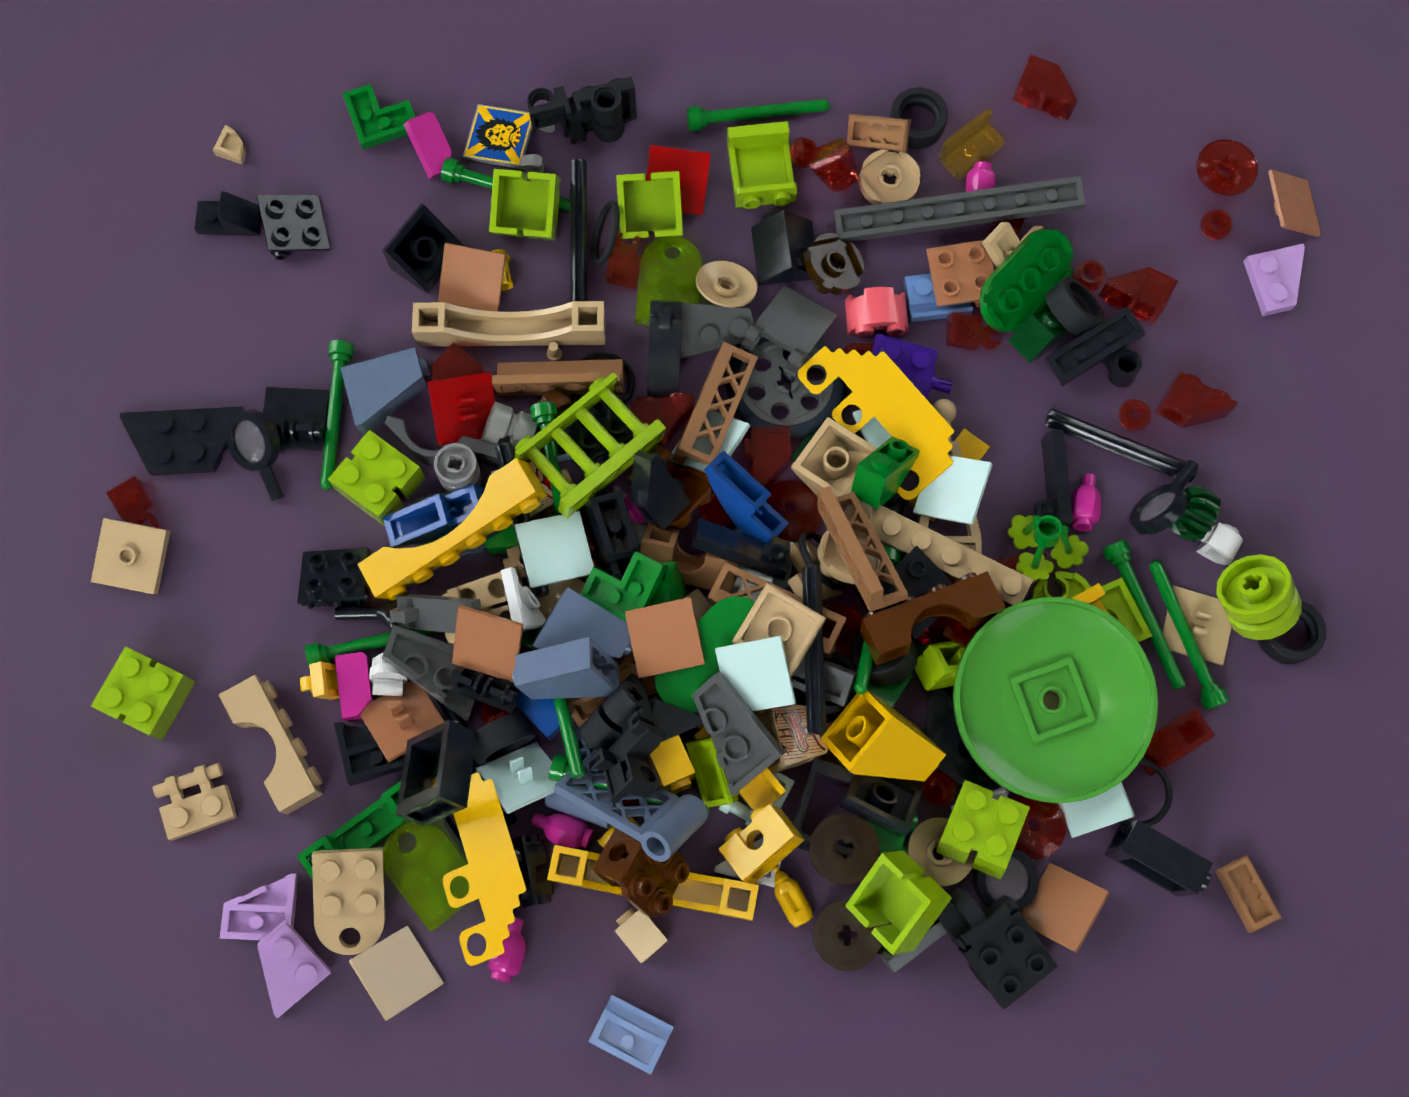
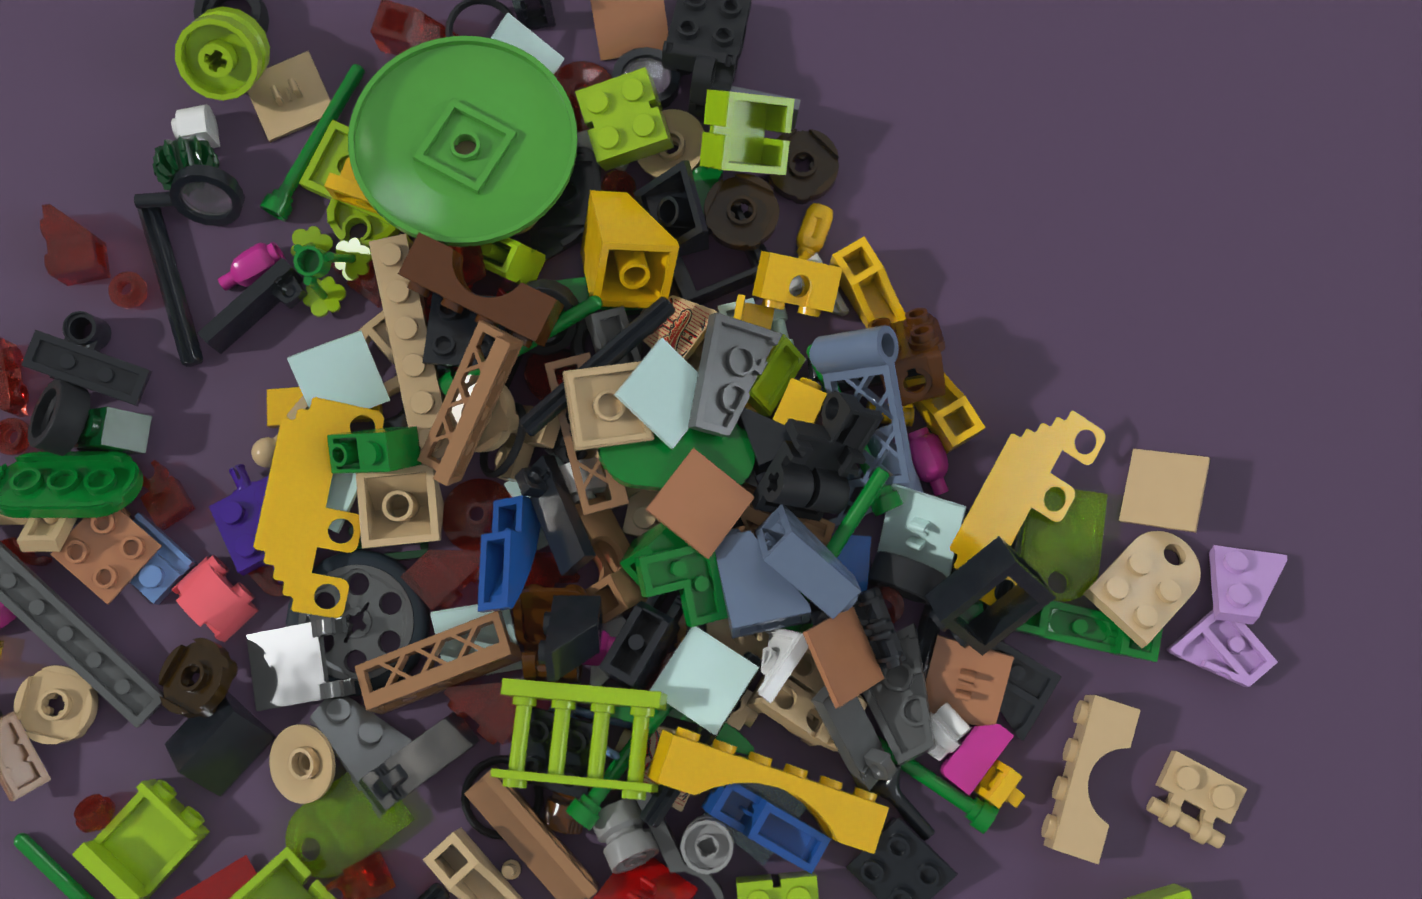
camera: 130 degrees left, 5 degrees up
(509, 963) = (1062, 407): dark pink plant -> none
(529, 855) = (975, 469): black hinge -> none
(631, 1034) = (1032, 265): medium blue plate -> none
(639, 934) = (956, 320): tan brick -> none
(835, 165) = (84, 766): clear red slope -> none
(1211, 694) = (343, 38): green piece -> none

